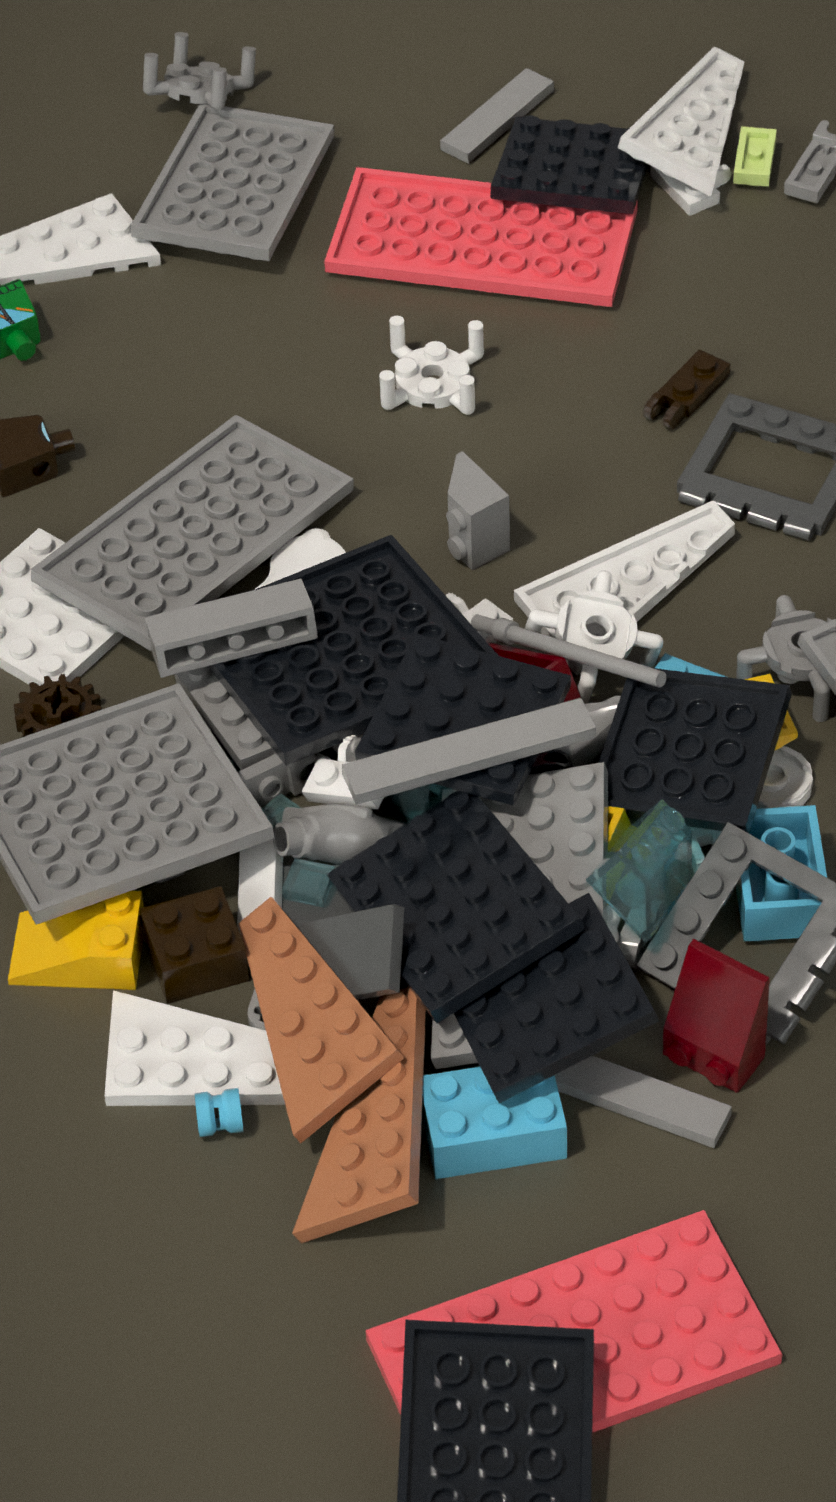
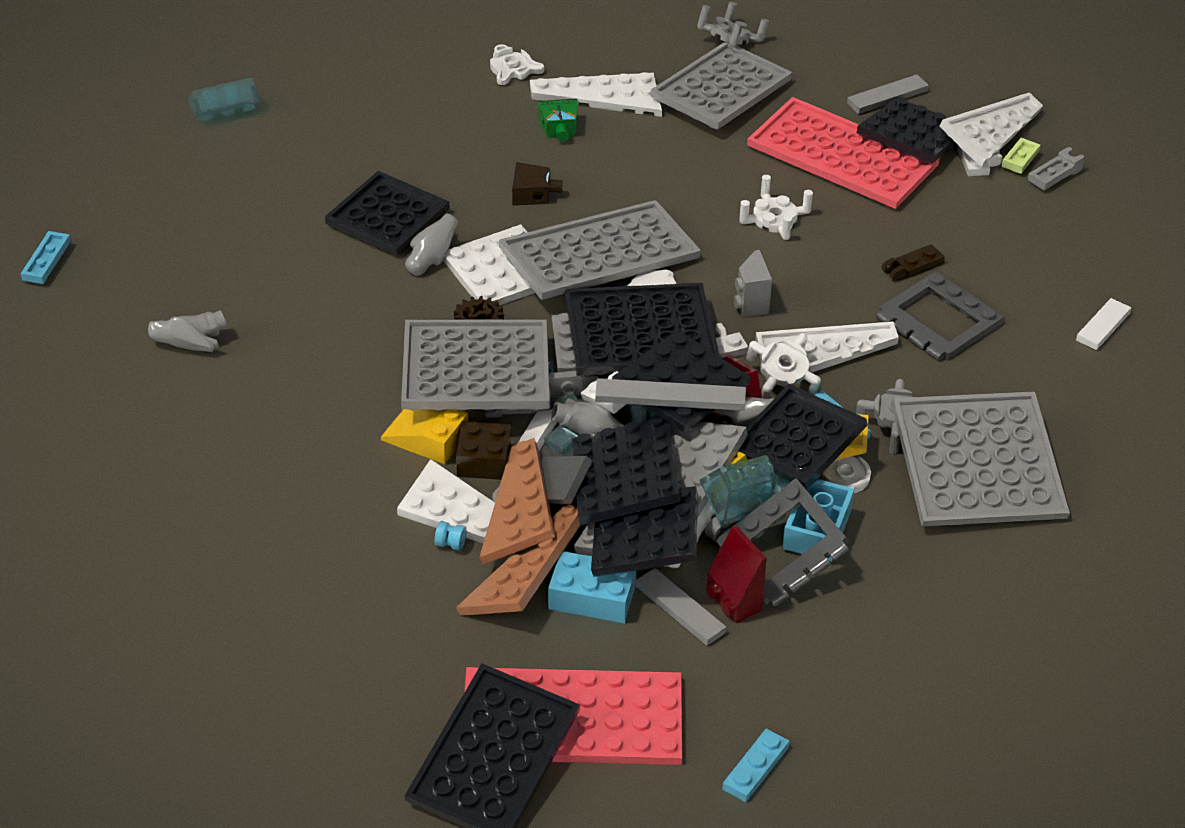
camera: 20 degrees right, 5 degrees down
(231, 627) = (585, 298): light grey brick -> none
(509, 632) = (738, 350): light grey bar -> none

